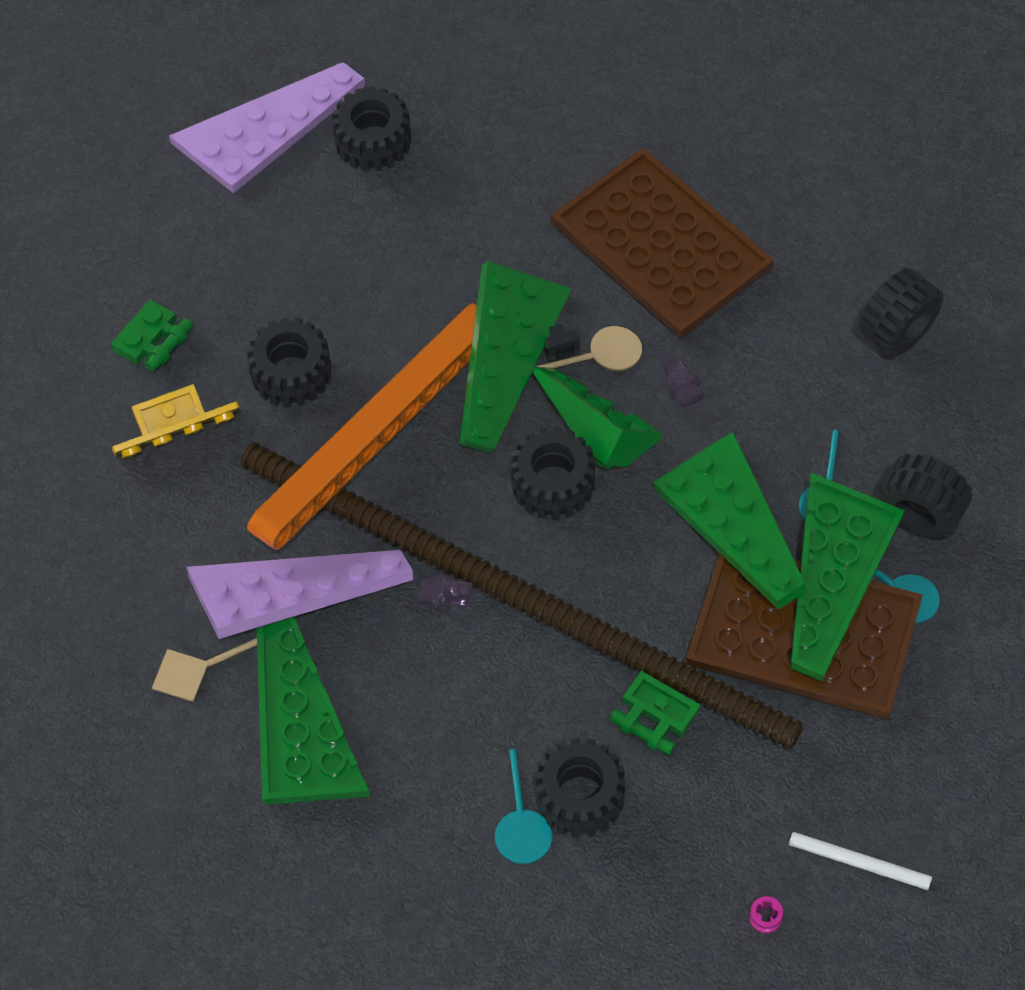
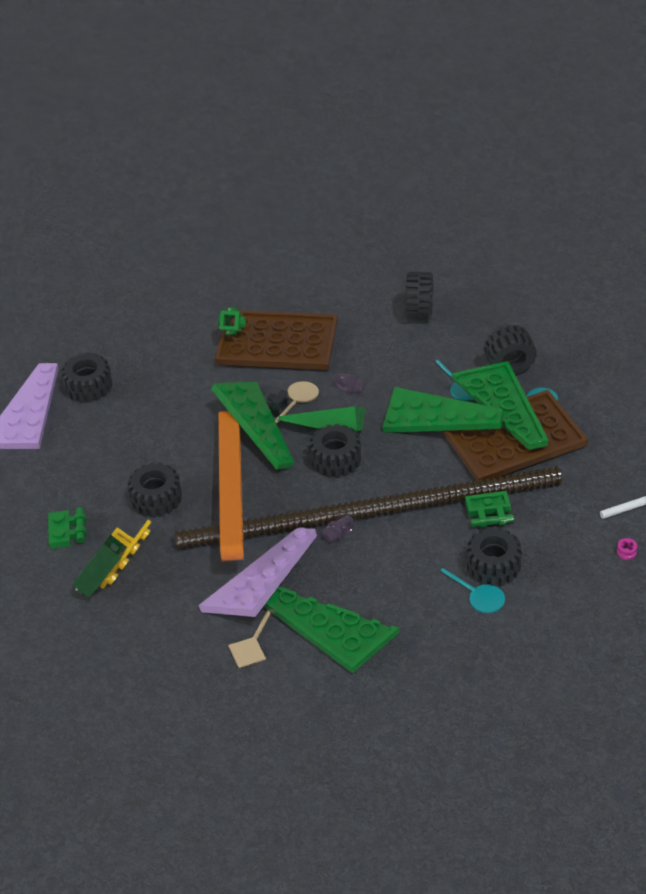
camera: 40 degrees left, 15 degrees down
(122, 424) = (99, 566): none -> dark green slope
(614, 174) = (225, 318): none -> green brick

